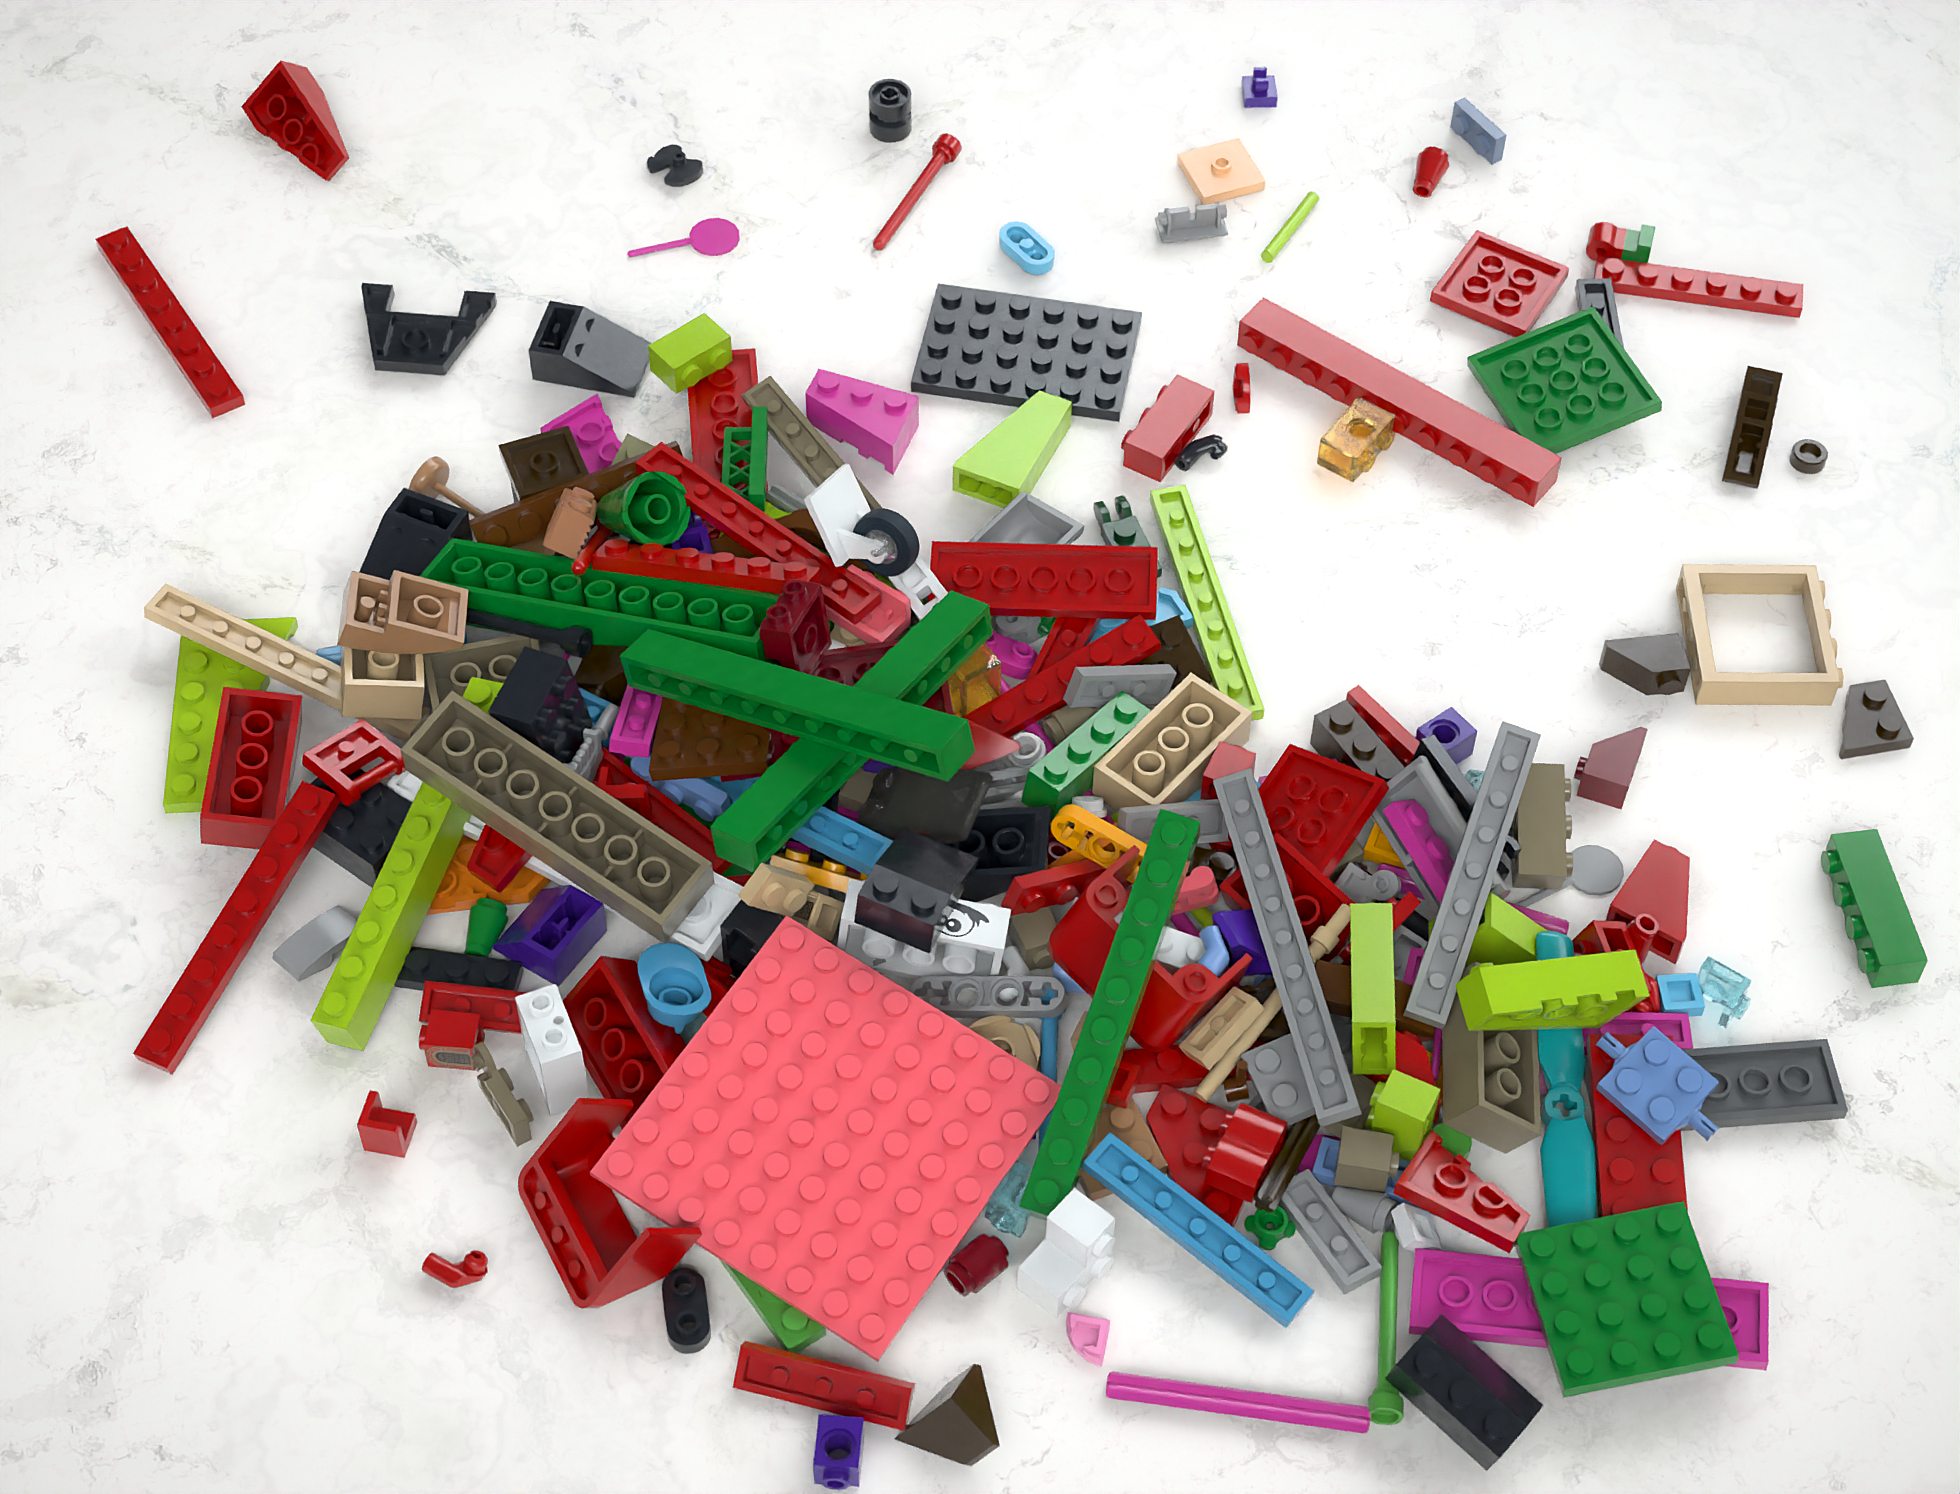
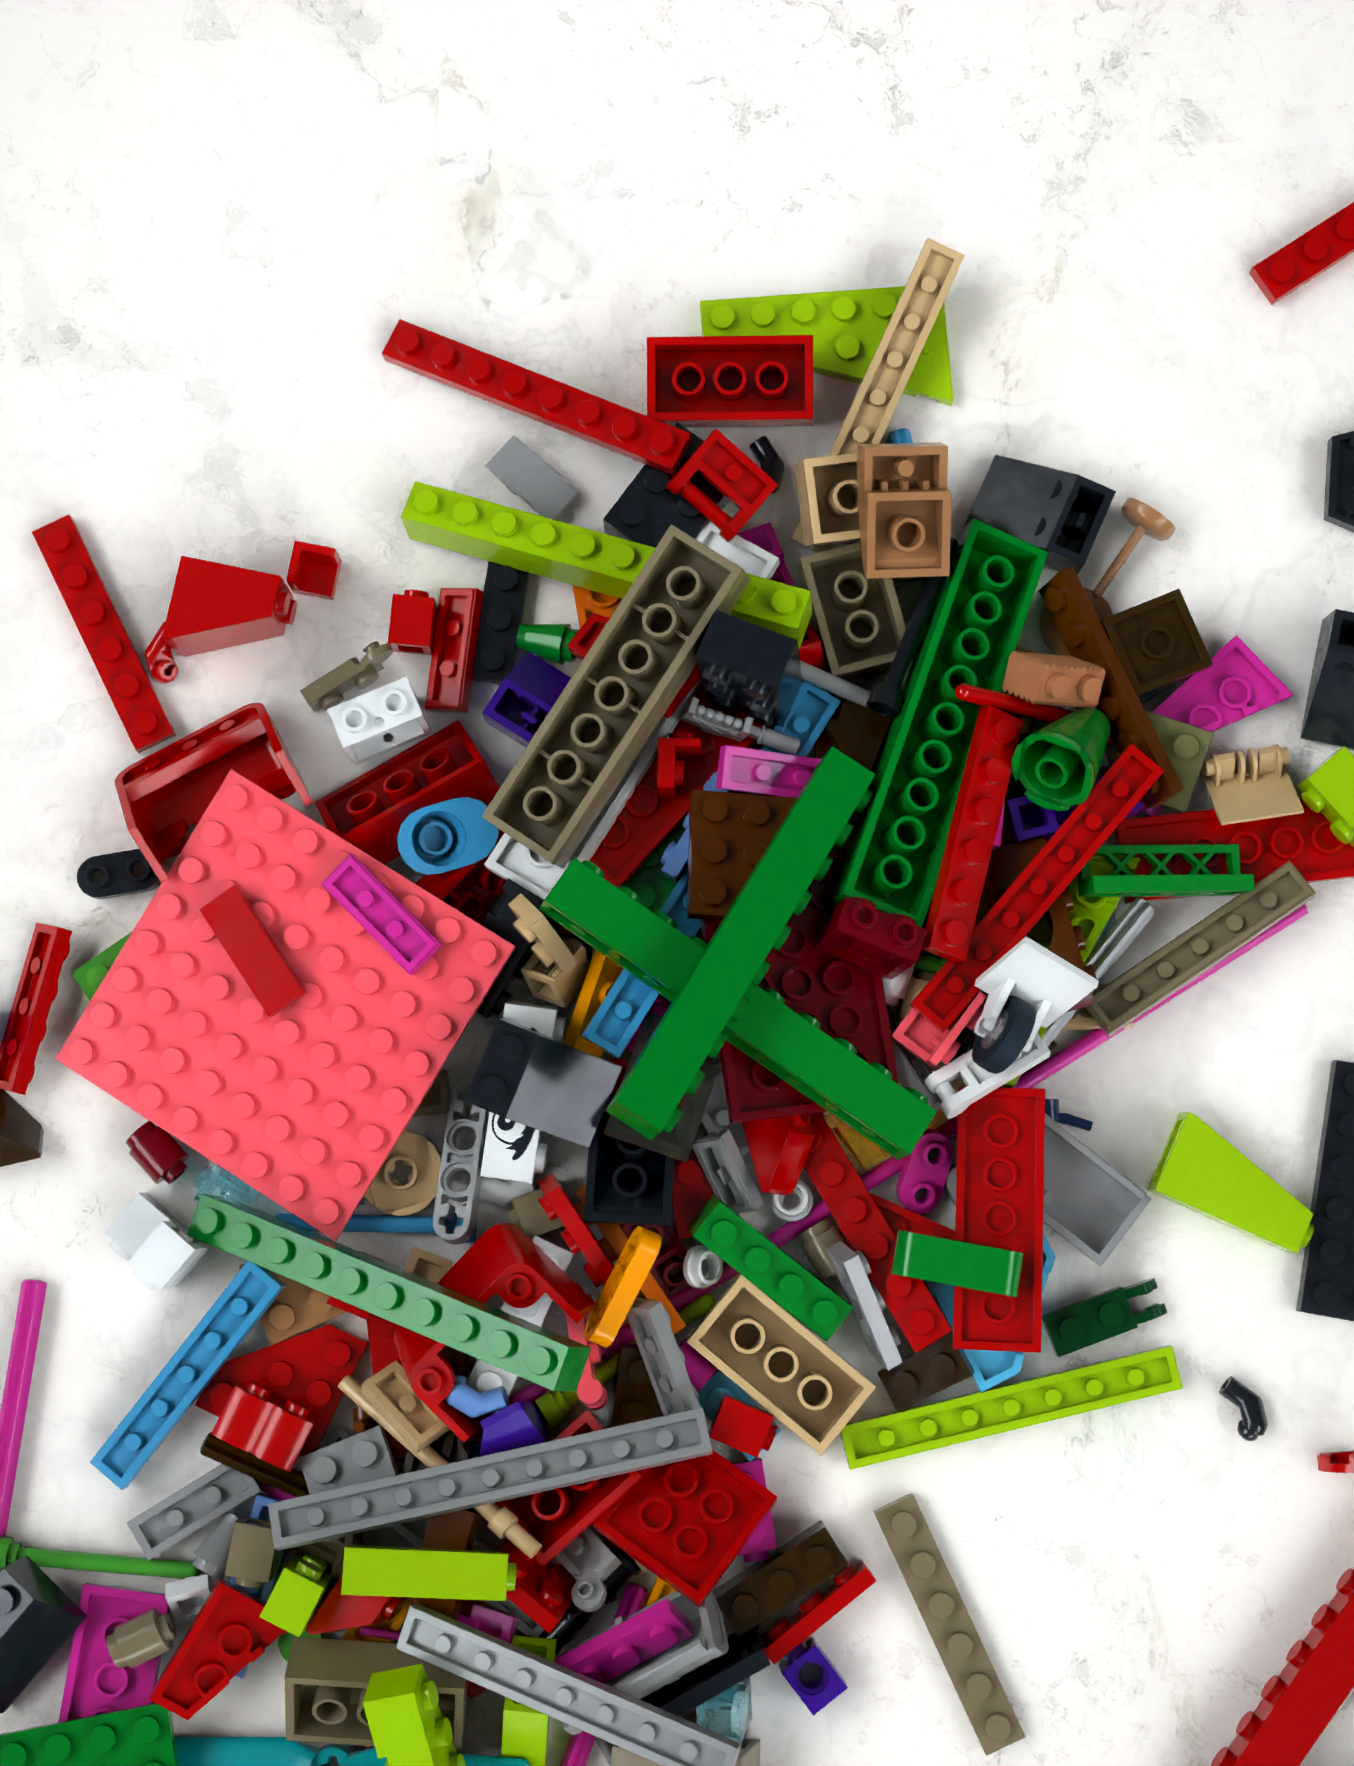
camera: 85 degrees right, 30 degrees up
(412, 1193) = (225, 607): none -> red slope
(425, 1329) = (104, 633): none -> red plate
(676, 418) = (1250, 786): none -> tan hinge
(748, 1022) = (382, 914): none -> dark pink tile
(777, 1143) = (253, 950): none -> red tile
(864, 415) = (1272, 1007): dark pink wedge -> none
(1082, 599) = (957, 1263): none -> green beam
(1088, 1336) = (88, 1263): bright pink tile -> none
(1167, 427) = (1276, 1368): brick -> none
(1269, 1237) = (191, 1447): green plate -> none
(1356, 440) = (1292, 1609): clear yellow brick -> none
(1391, 652) = (949, 1624): none -> dark tan plate
(1456, 1256) = (141, 1639): none -> dark tan brick

